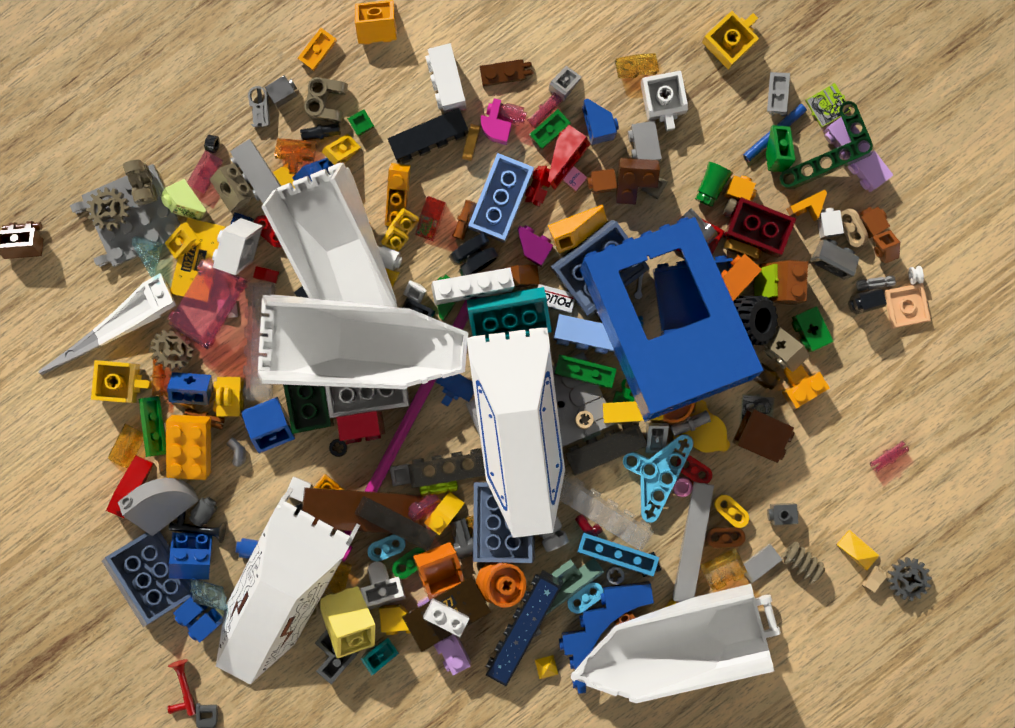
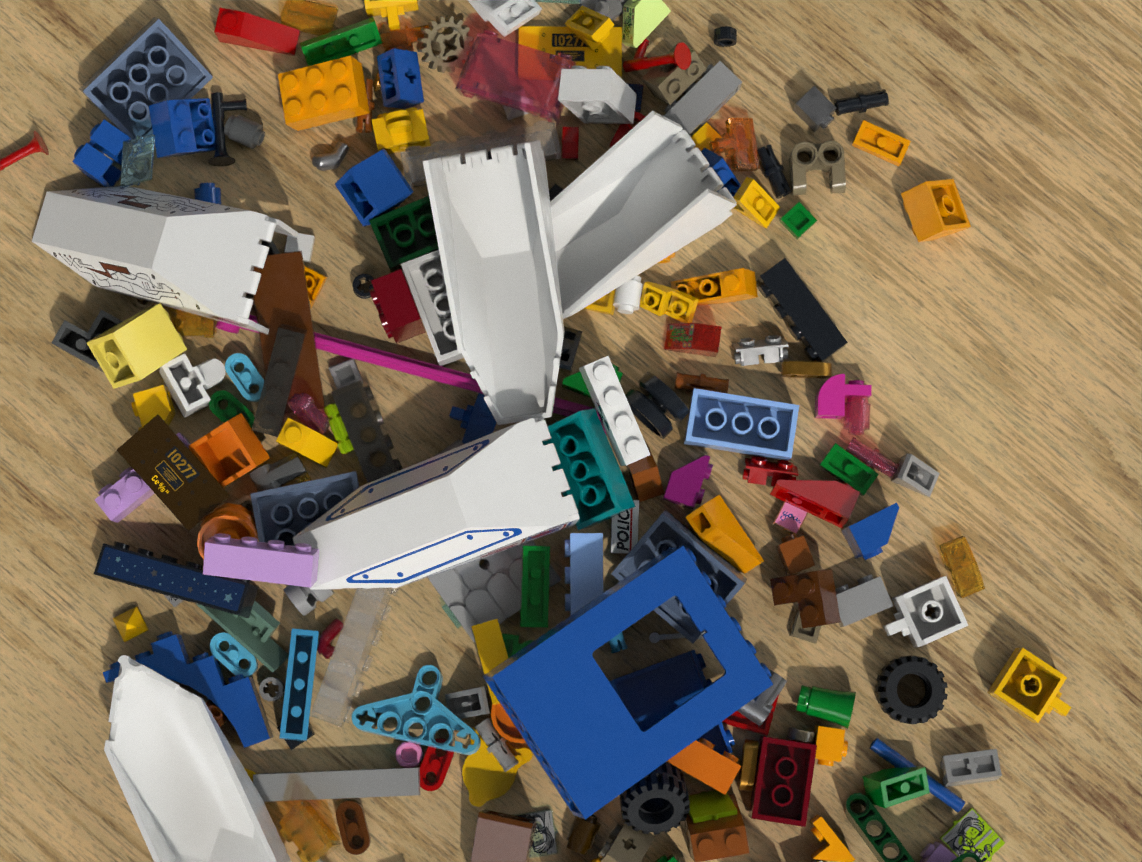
camera: 75 degrees right, 5 degrees down
(157, 503) = (242, 70): light grey brick -> none
(204, 171) = (693, 35): clear pink plate -> none
(221, 179) = (680, 56): none -> red piece
(261, 110) = (783, 89): light grey piece -> none
(283, 56) = (861, 102): none -> black pin
(379, 656) = (101, 399): teal slope -> none
(415, 291) = (592, 340): white slope -> none
(445, 78) = (882, 316): white brick -> none
(446, 617) = (168, 471): white brick -> none
(449, 163) = (770, 348): none -> light grey hinge
(505, 72) = (910, 394): reddish brown hinge -> none
(526, 563) = (260, 560): none -> lavender brick
(578, 417) = (470, 590): tan bush -> none
(605, 449) = (437, 638): clear smoke brick -> none
(722, 107) = (933, 684): none -> black tyre
(731, 511) = (389, 826): yellow plate -> none

